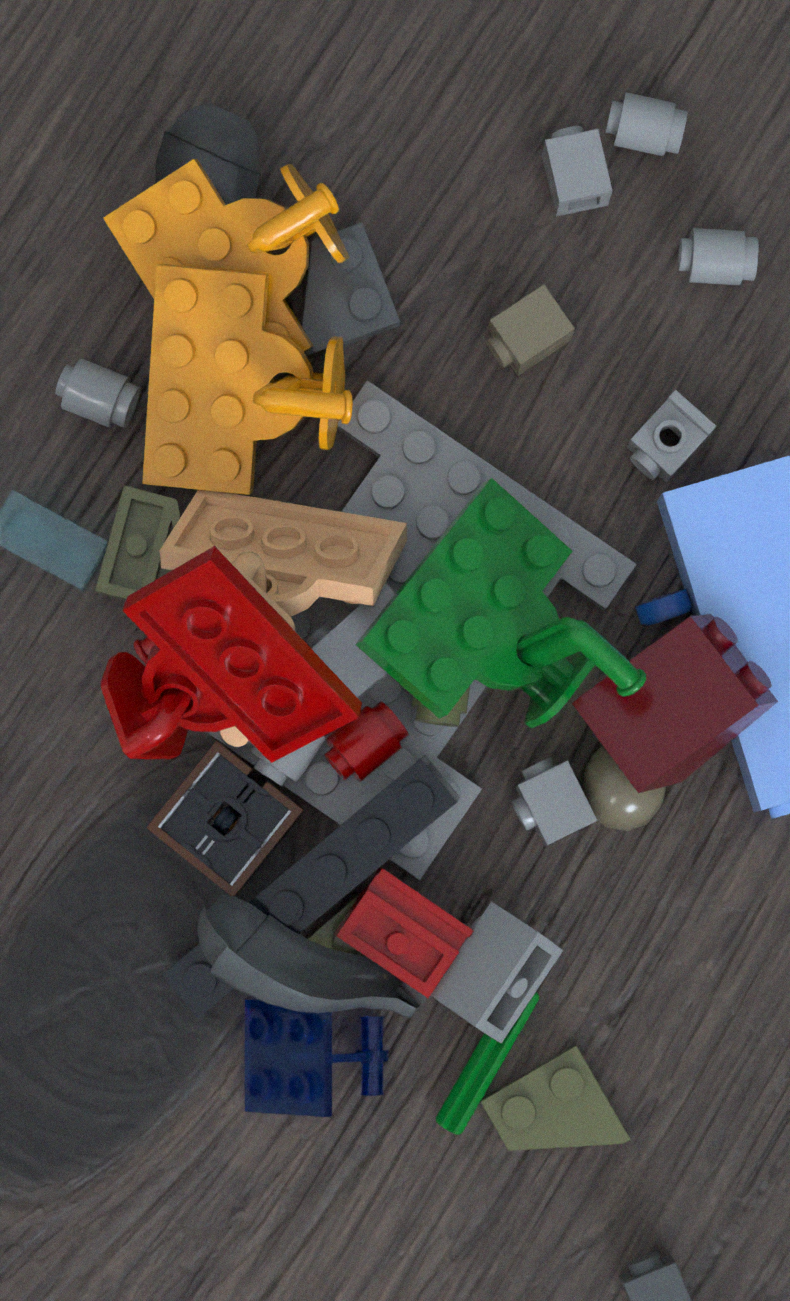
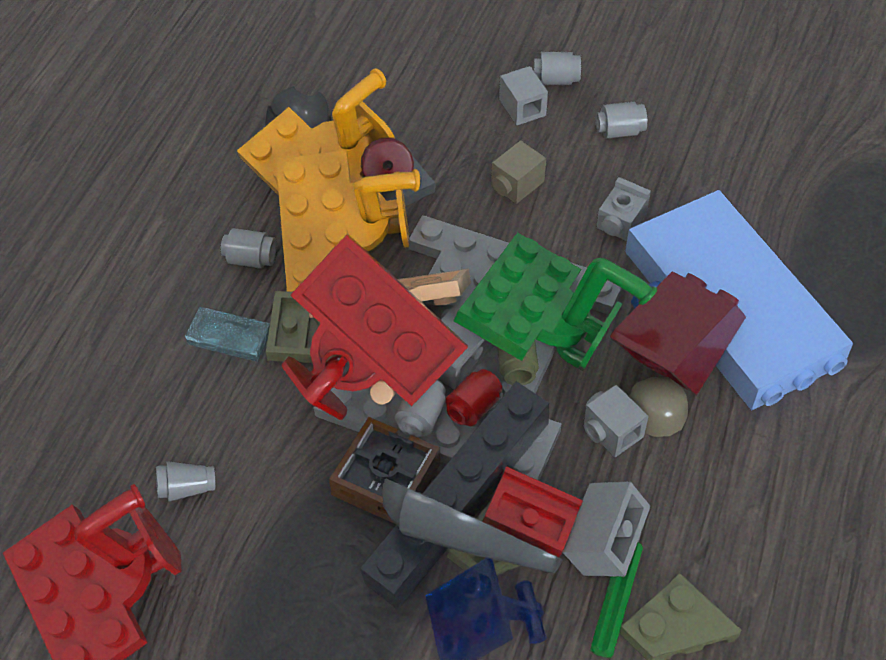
camera: 10 degrees left, 30 degrees down
(327, 278) = (386, 150): none -> dark red piece

